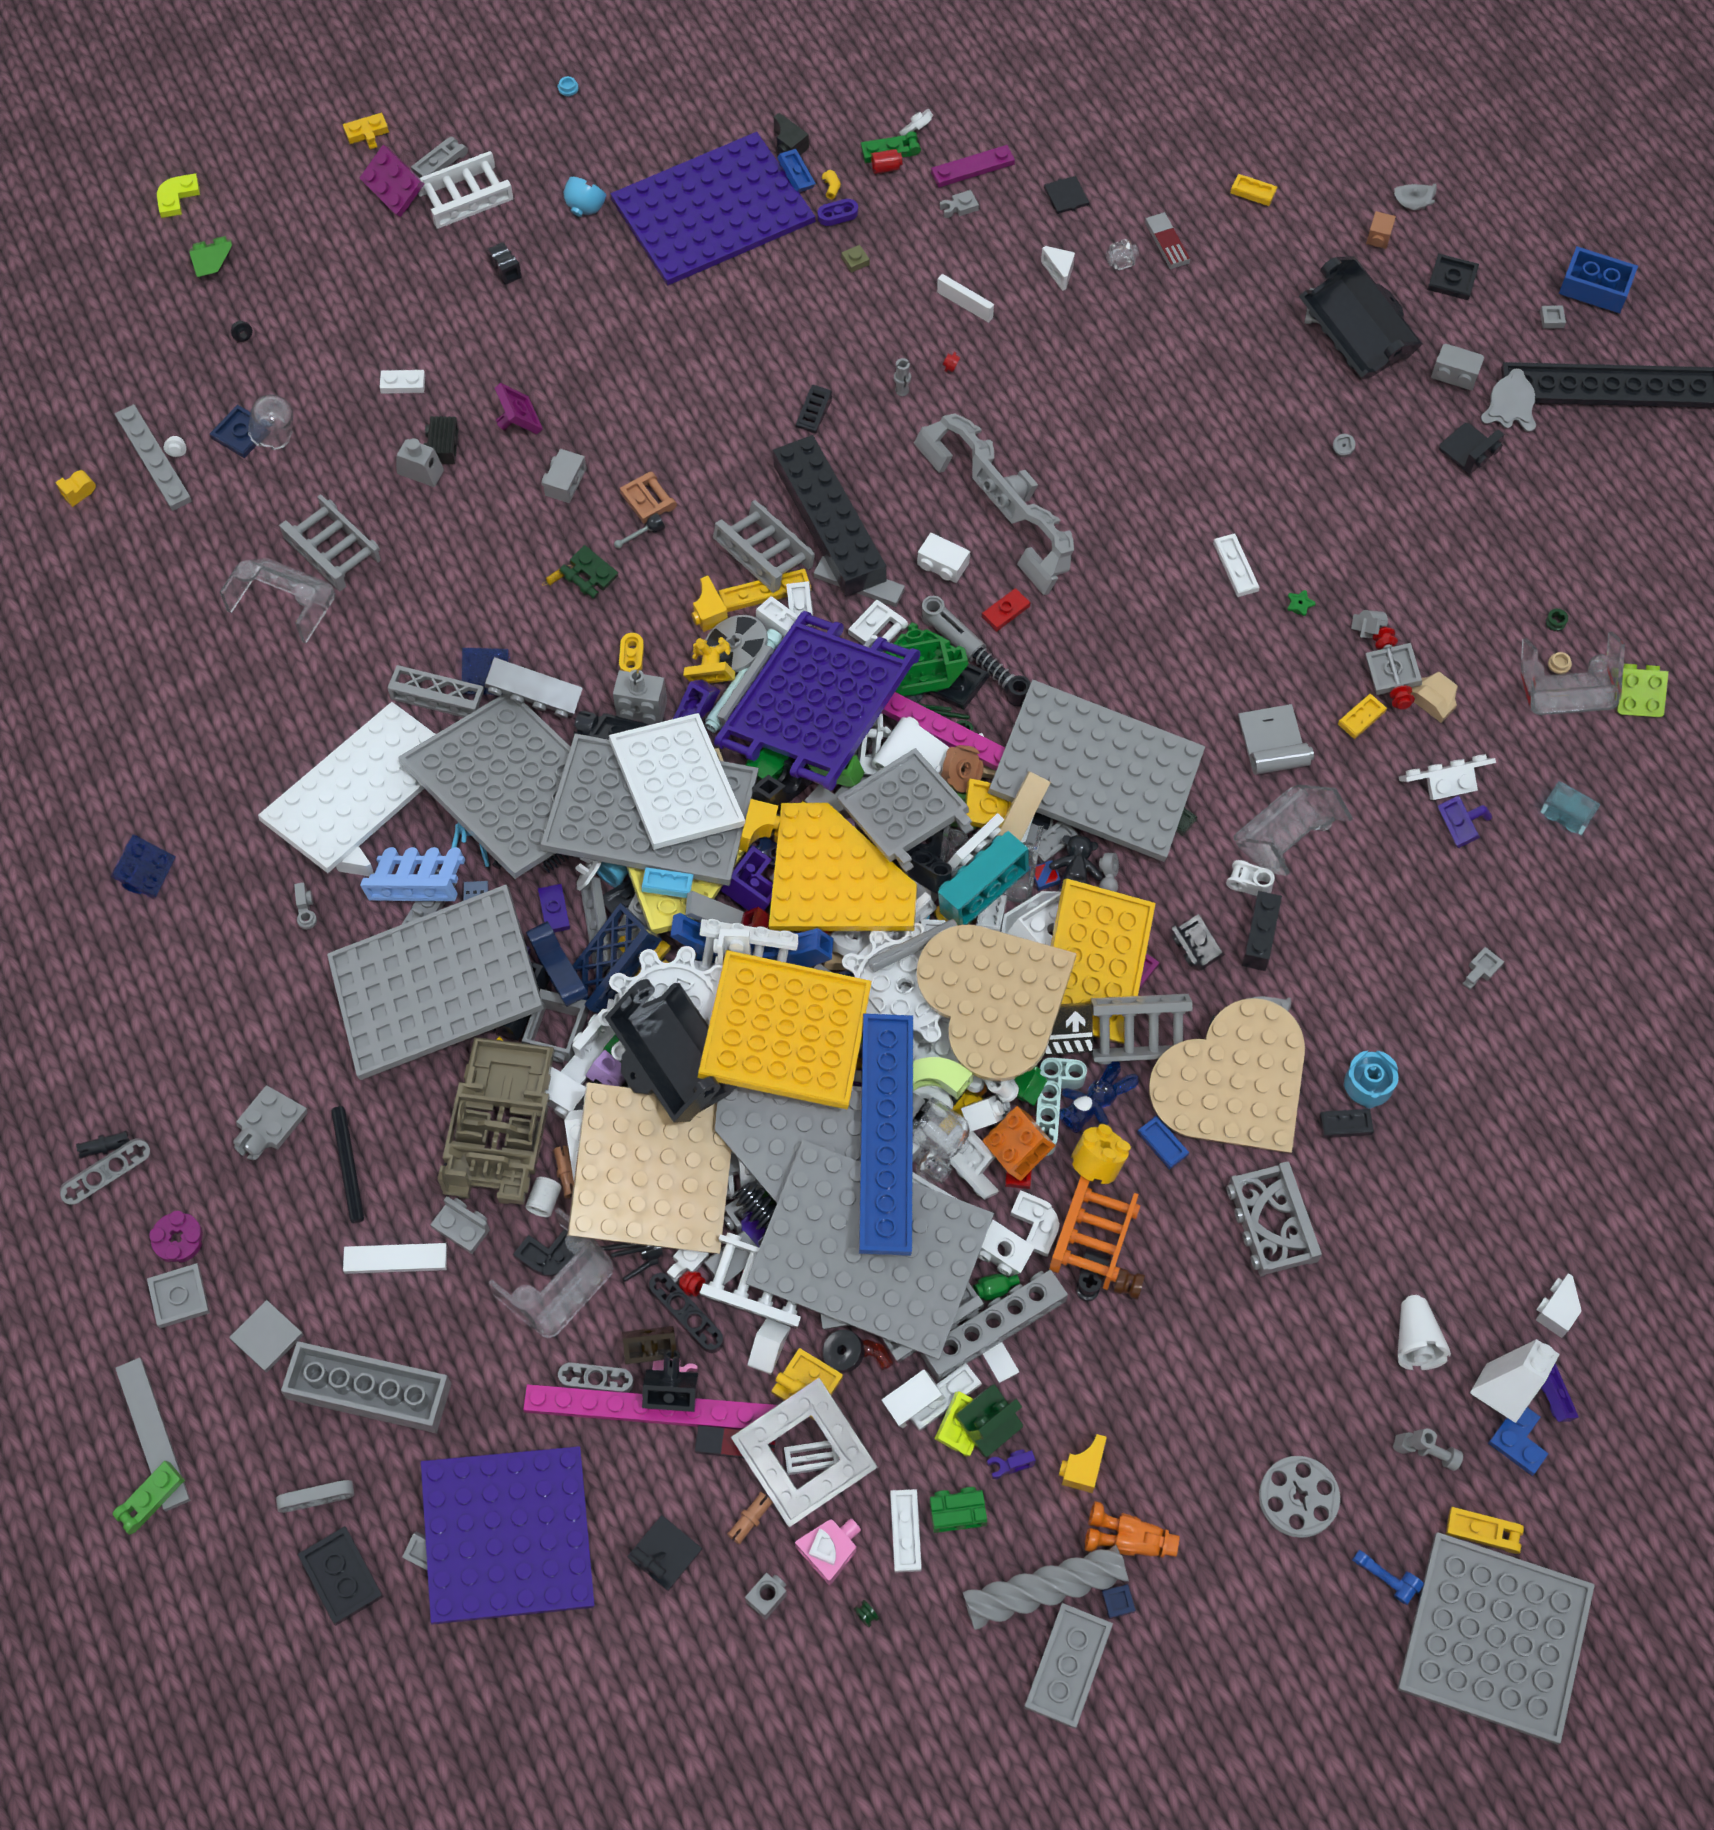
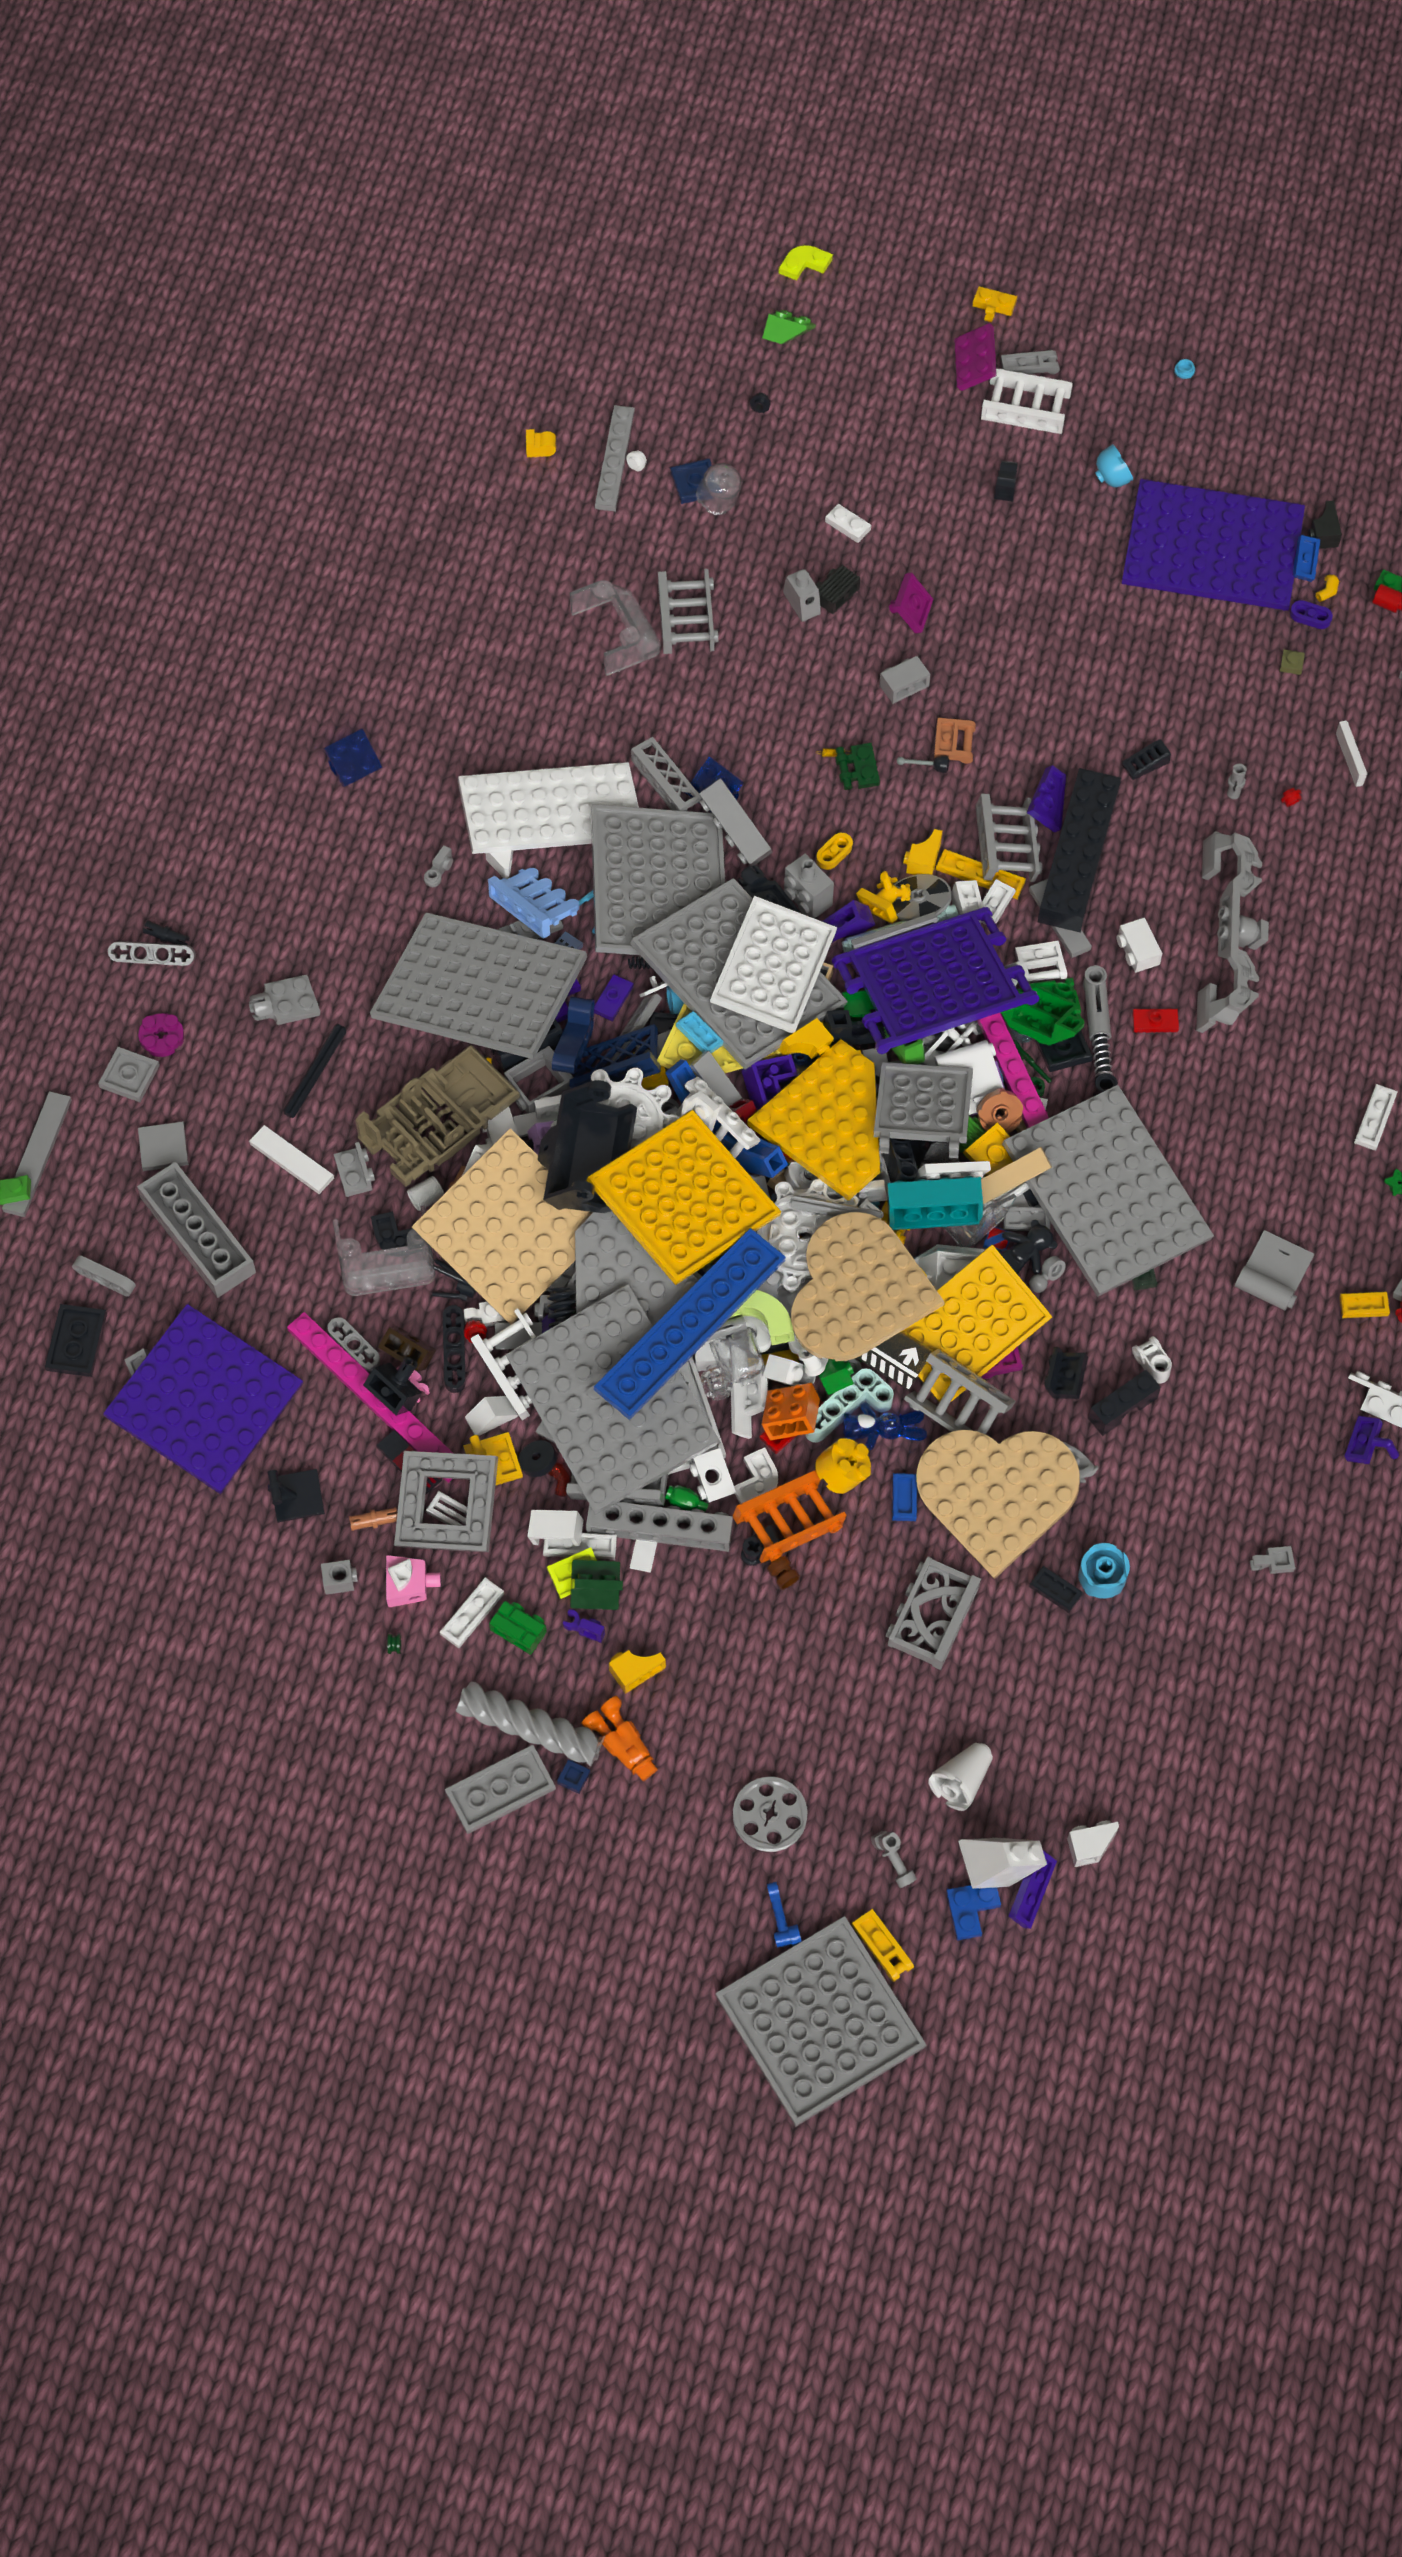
camera: 40 degrees right, 0 degrees up
(768, 492) = (1049, 799): none -> dark purple wing
(993, 915) = (926, 1238): white plate -> none
(1287, 821) = (1219, 1340): clear windscreen -> none

